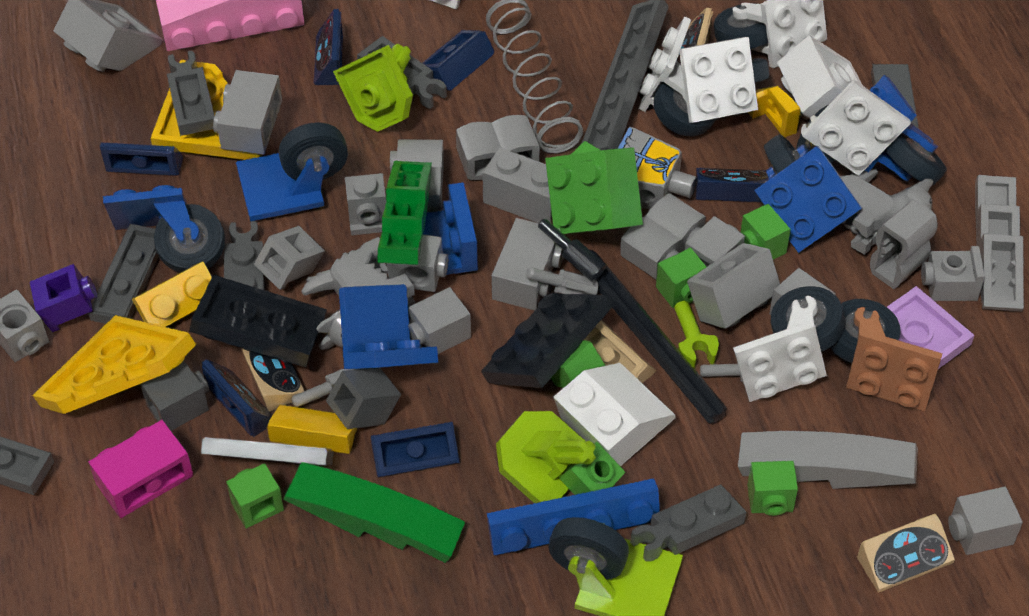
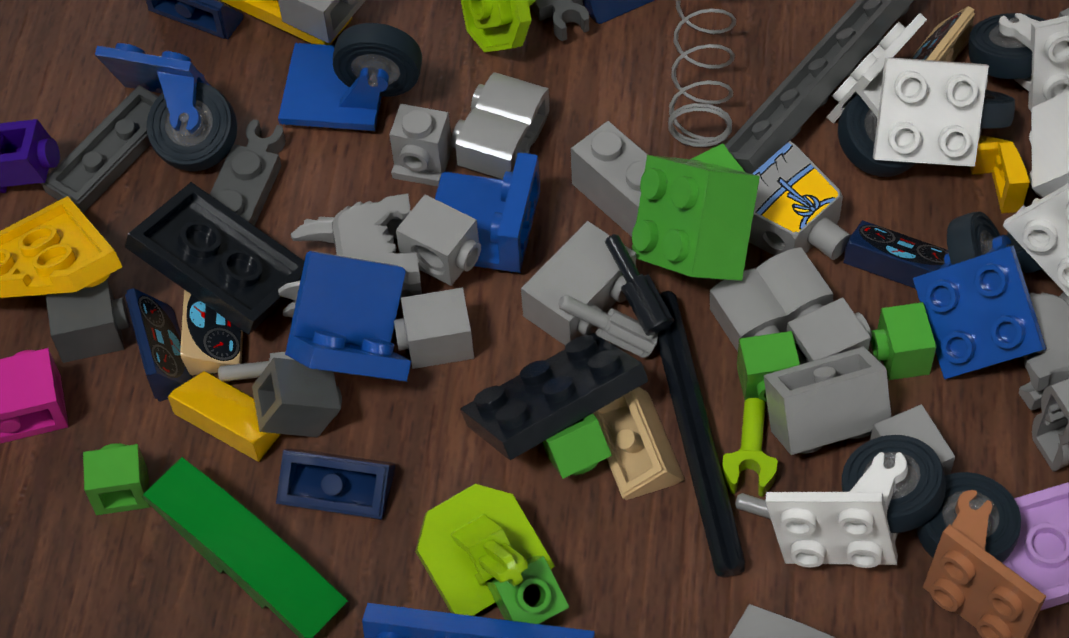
camera: 25 degrees right, 5 degrees up
(174, 297) = (136, 195): yellow plate -> none
(267, 451) = (157, 428): tile -> none
(288, 256) = (295, 184): light grey brick -> none
(405, 212) = (445, 175): green slope -> none
(481, 140) = (632, 107): light grey brick -> none
(612, 409) = (593, 519): white slope -> none

